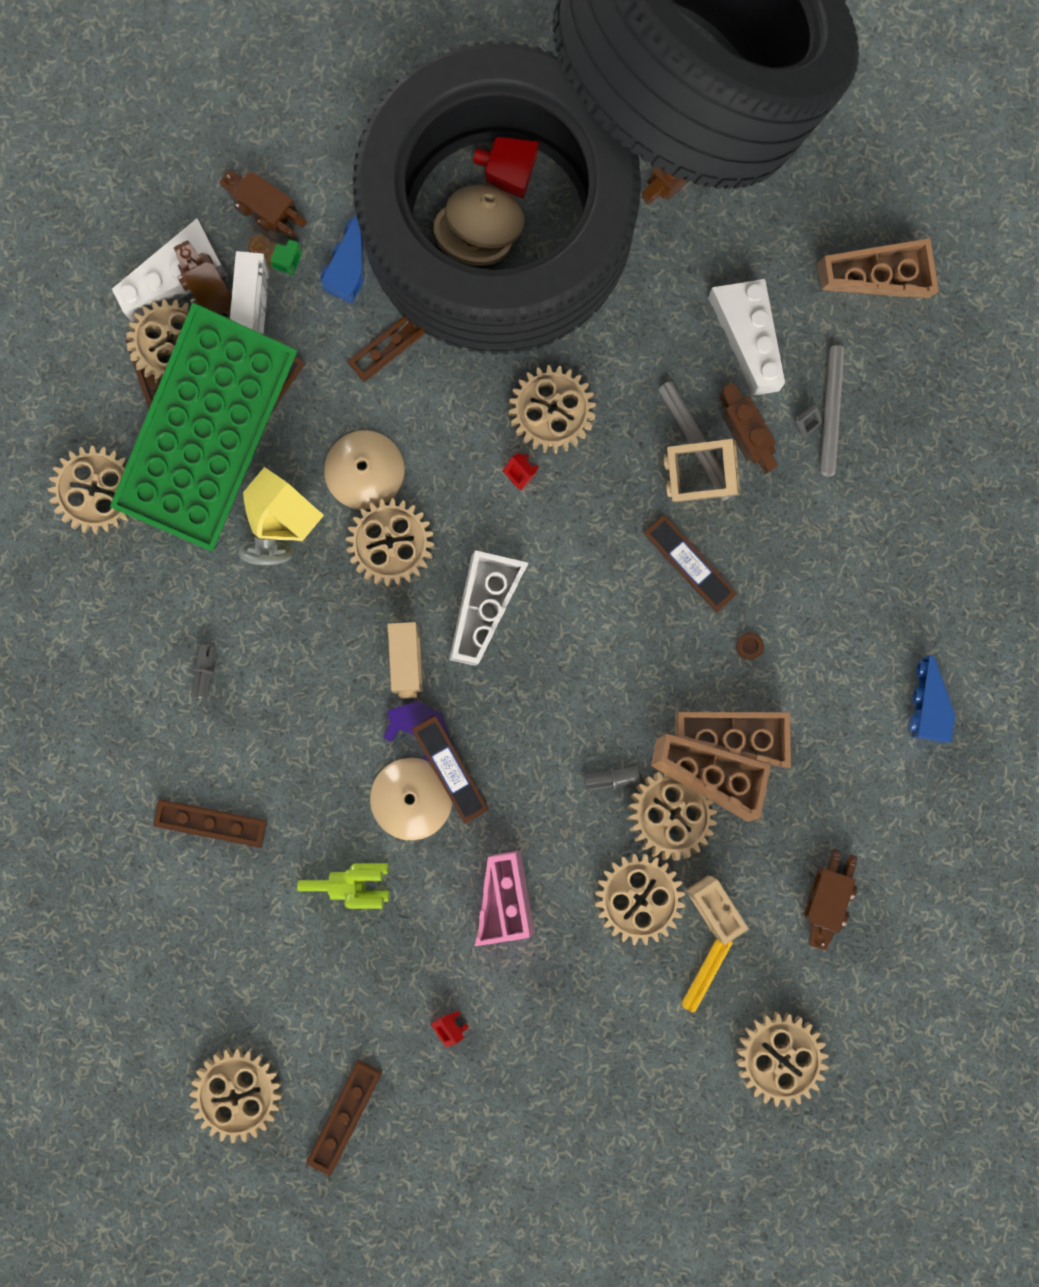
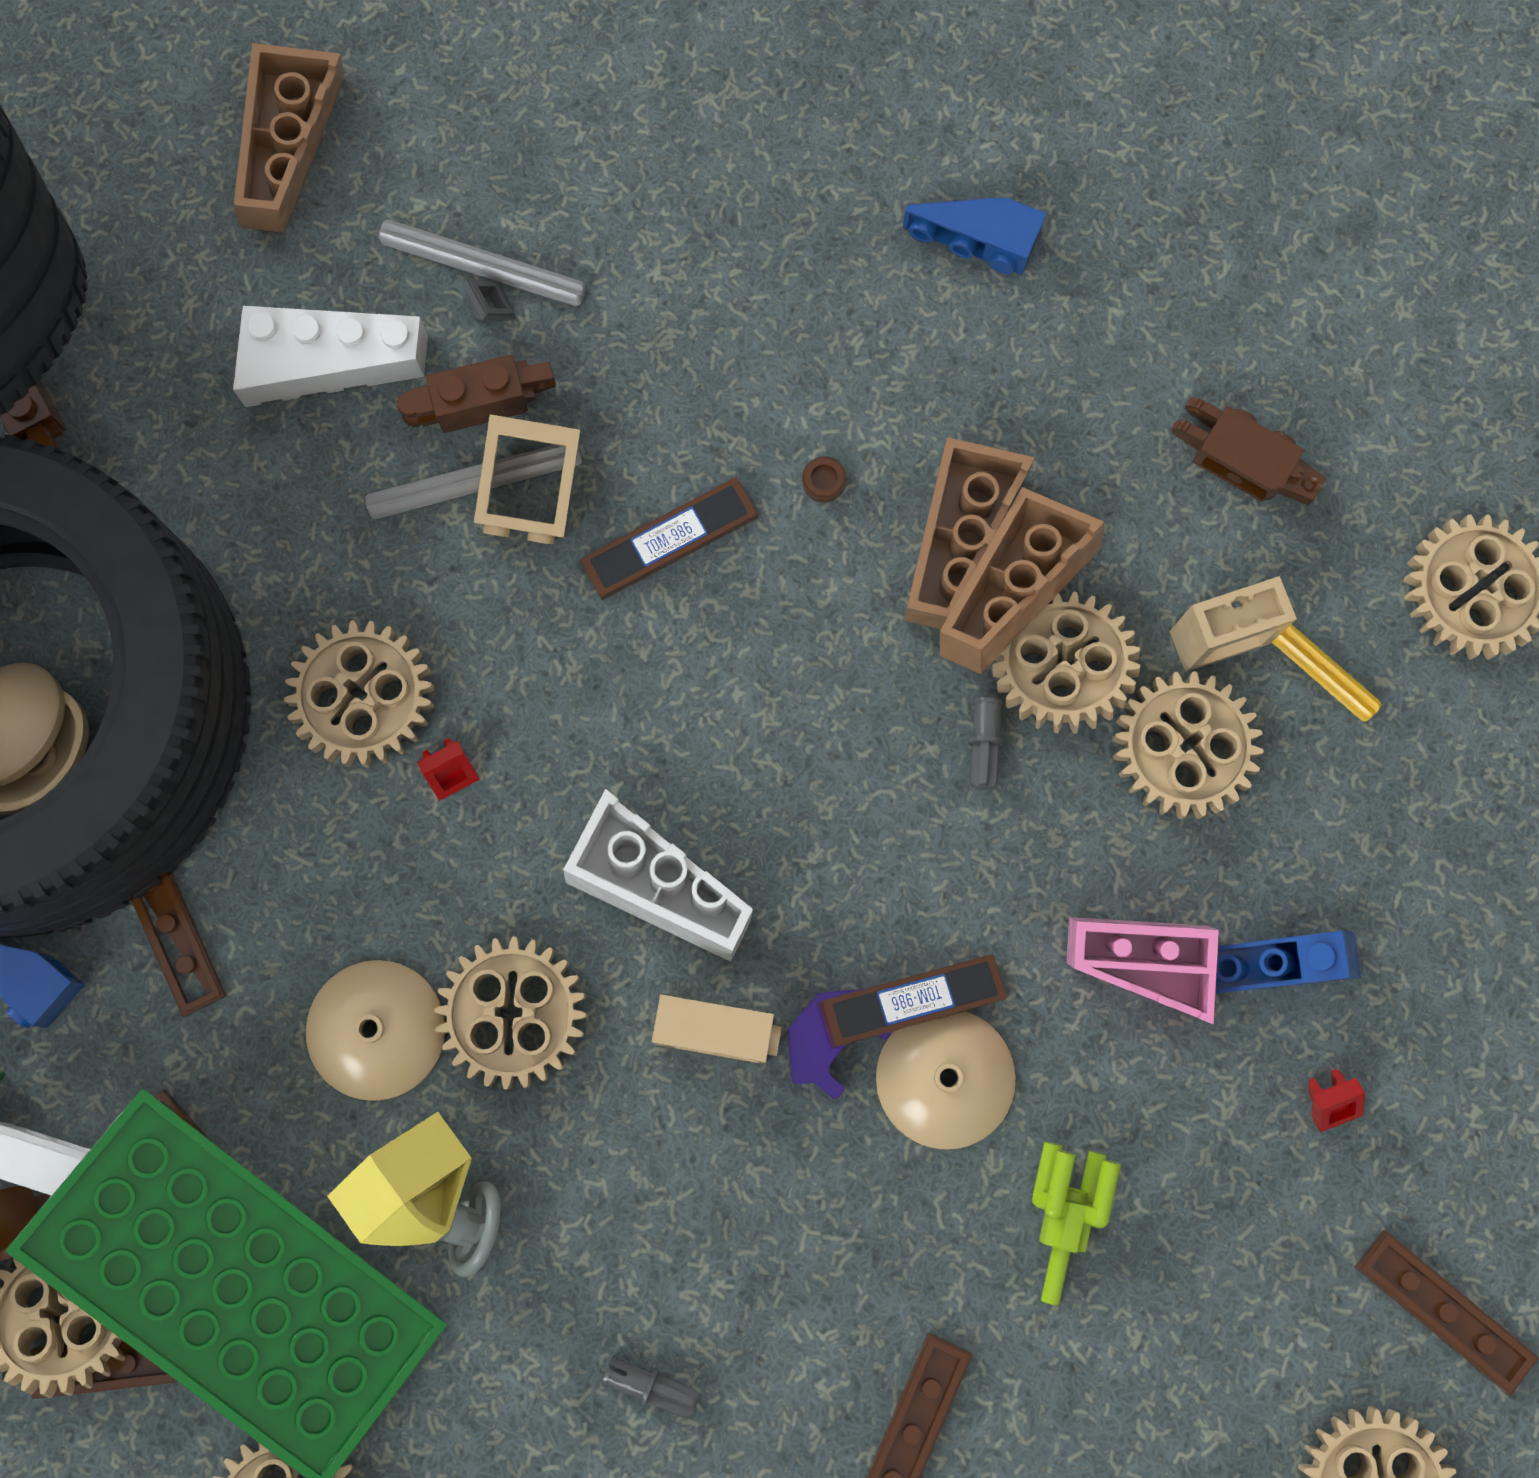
camera: 75 degrees left, 5 degrees down
(523, 984) = (1287, 962): none -> blue slope

